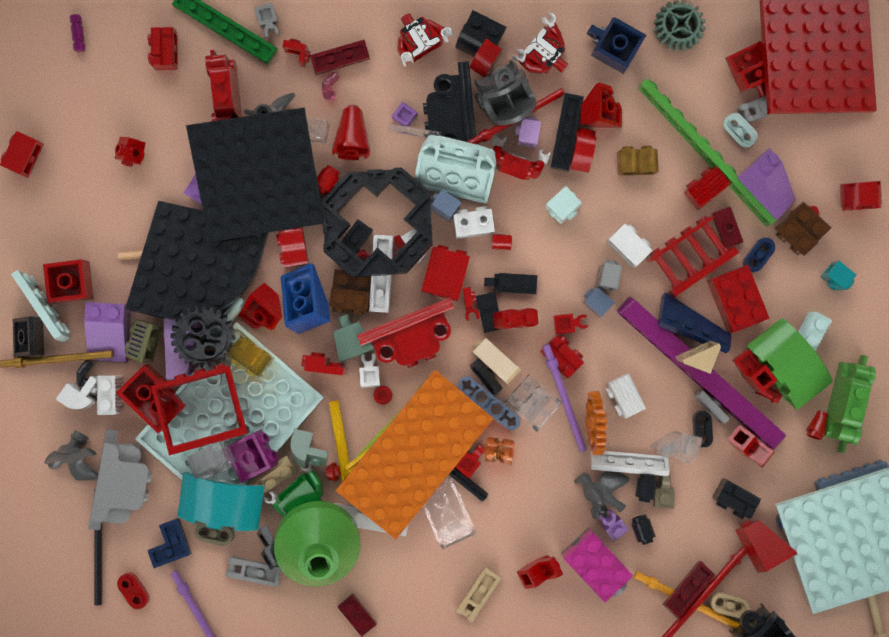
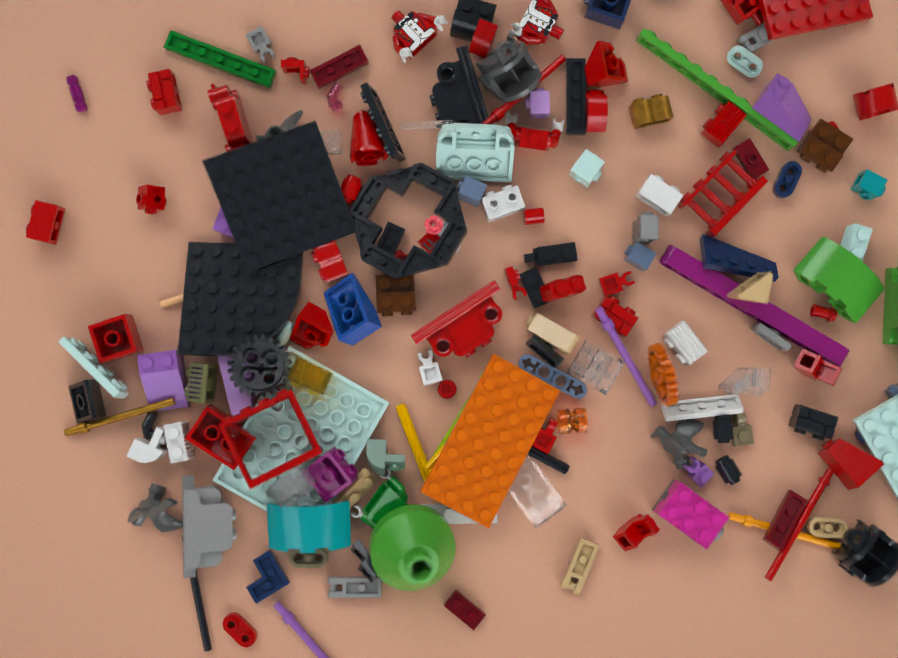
camera: 10 degrees left, 0 degrees up
(320, 364) = (379, 370): red plate -> none
(333, 472) = (413, 474): red plate -> none
(347, 341) = (401, 341): sand green torso -> none
(372, 124) = (384, 127): none -> black plate
(381, 285) = (423, 281): white plate -> none
(400, 236) = (433, 229): none -> coral plate
(404, 115) = (413, 111): medium lavender tile -> none
(445, 272) = (485, 257): red brick -> none
(707, 427) = (770, 358): black beam -> none
(738, 299) = (776, 226): red brick -> none
(753, 372) = (806, 296): red brick -> none
(817, 426) = (878, 335): red cone -> none

